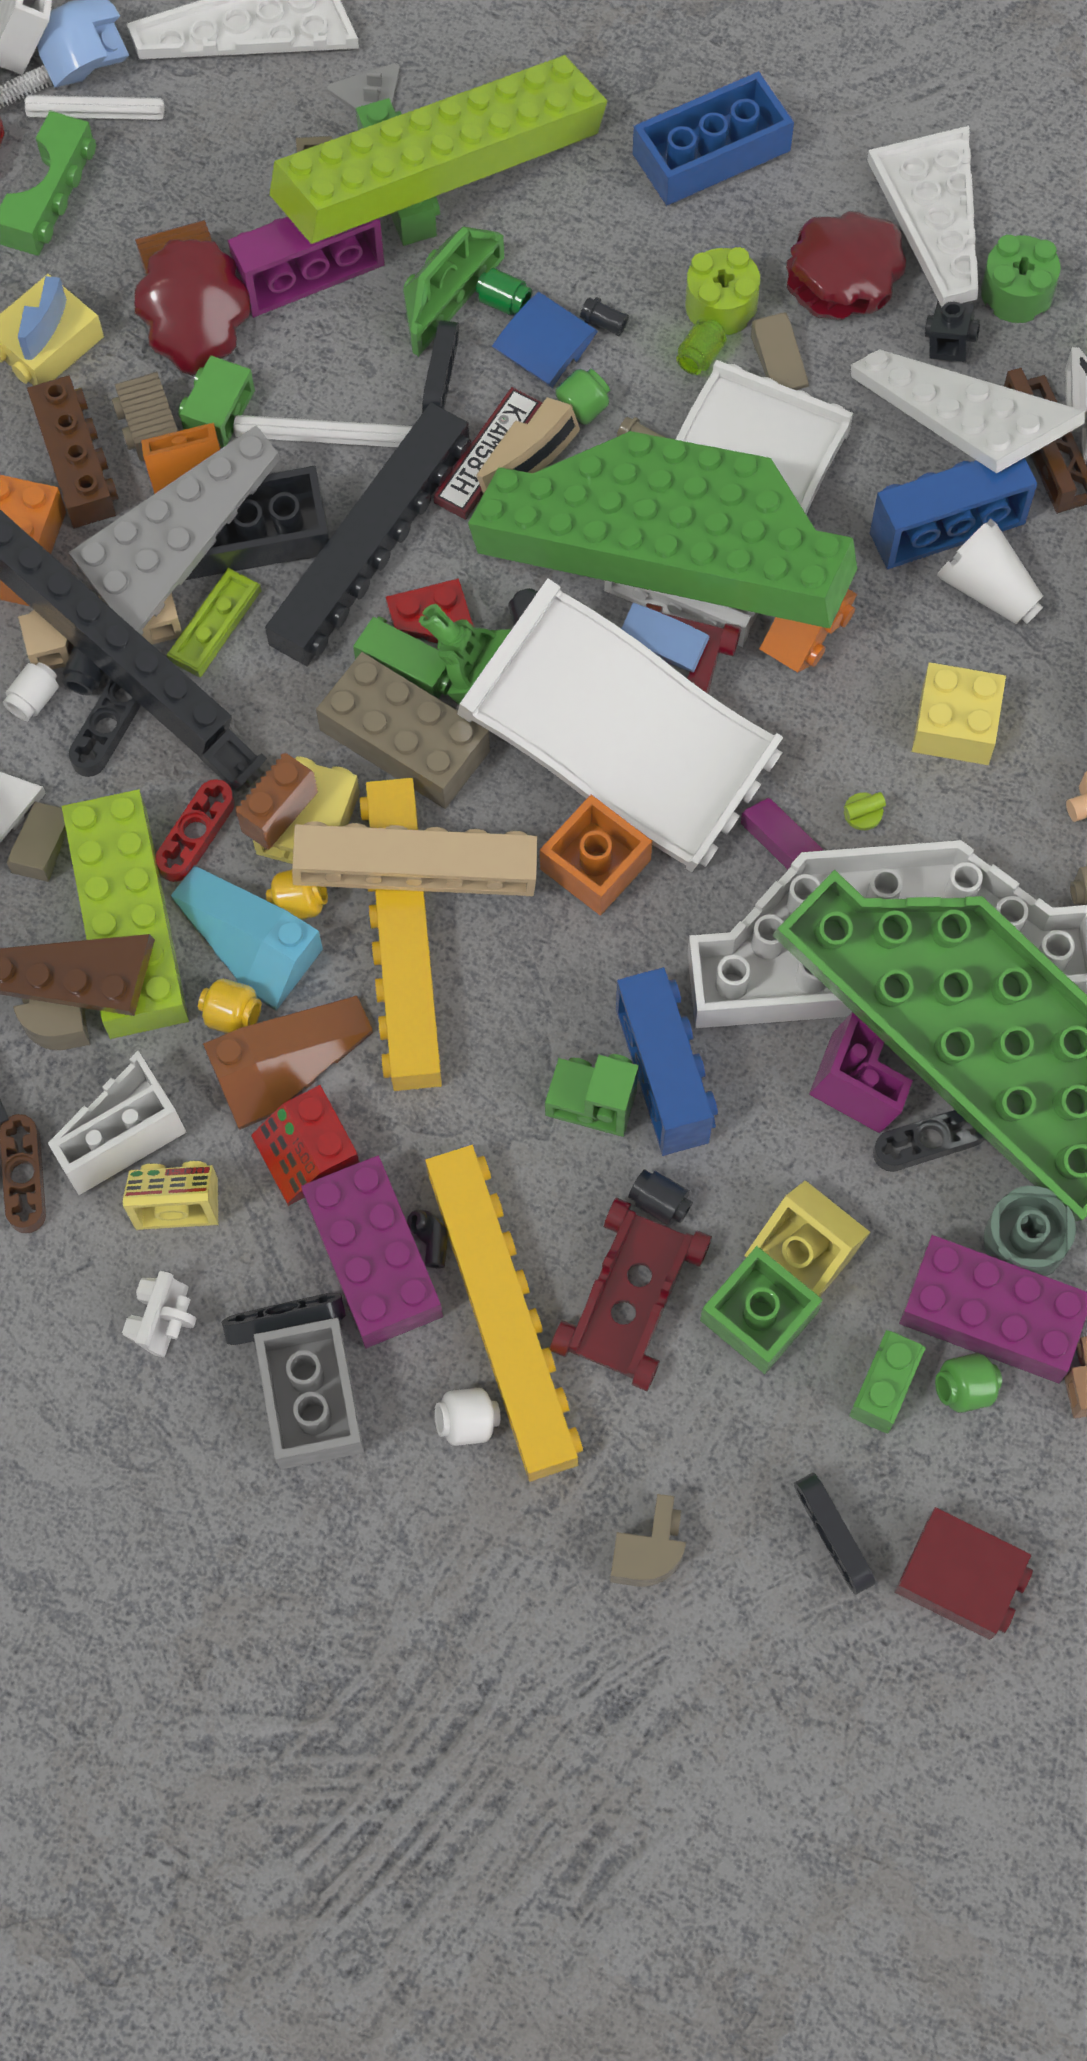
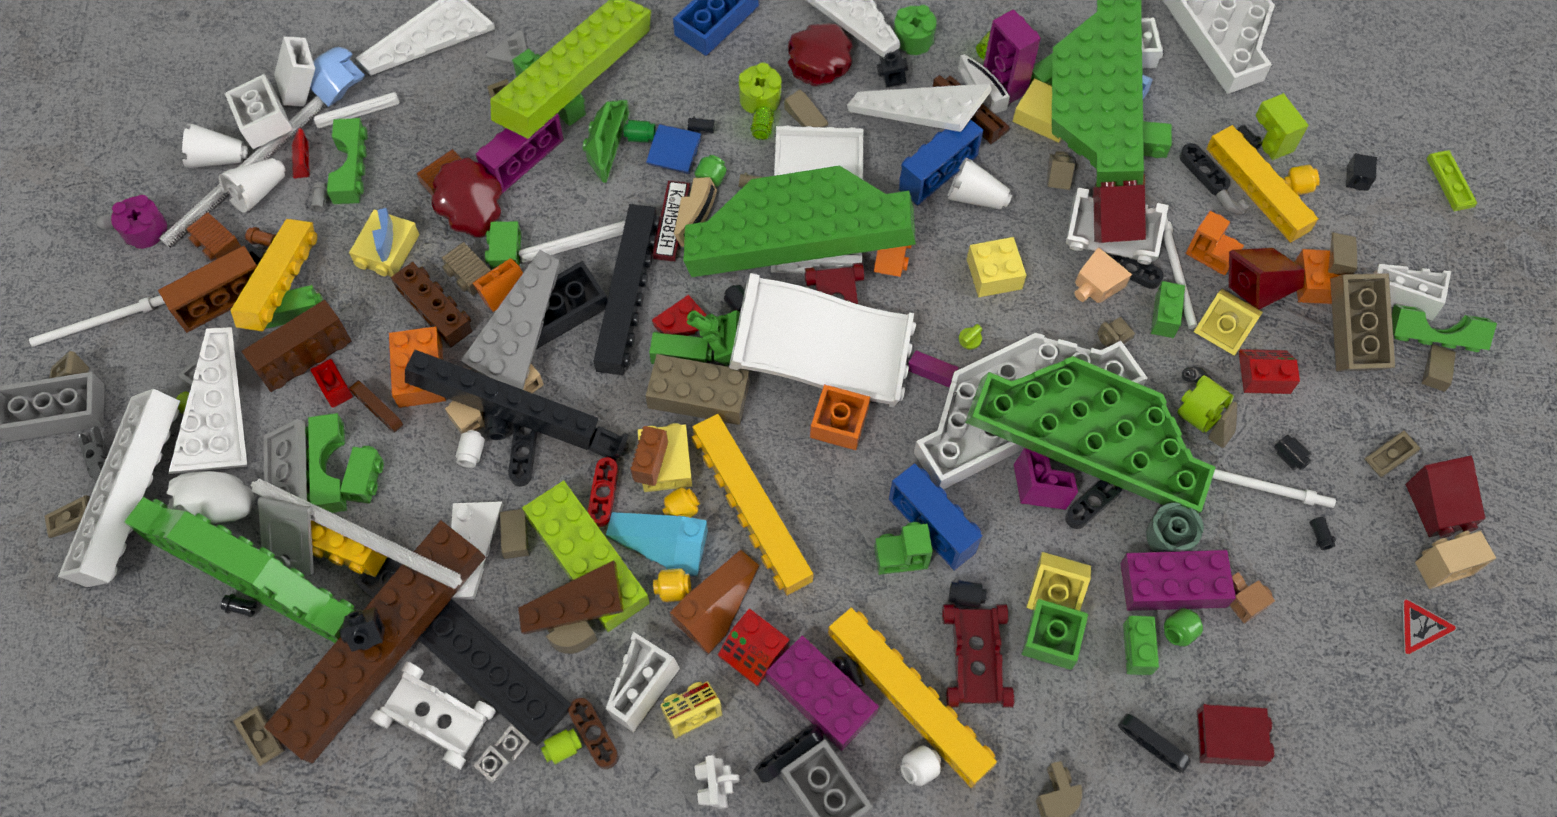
camera: 25 degrees left, 5 degrees down
(214, 622) = (559, 369): lime tile -> none
(414, 859) = (743, 458): tan brick -> none
(441, 364) = (623, 182): black beam -> none
(666, 636) = (827, 282): medium blue slope -> none

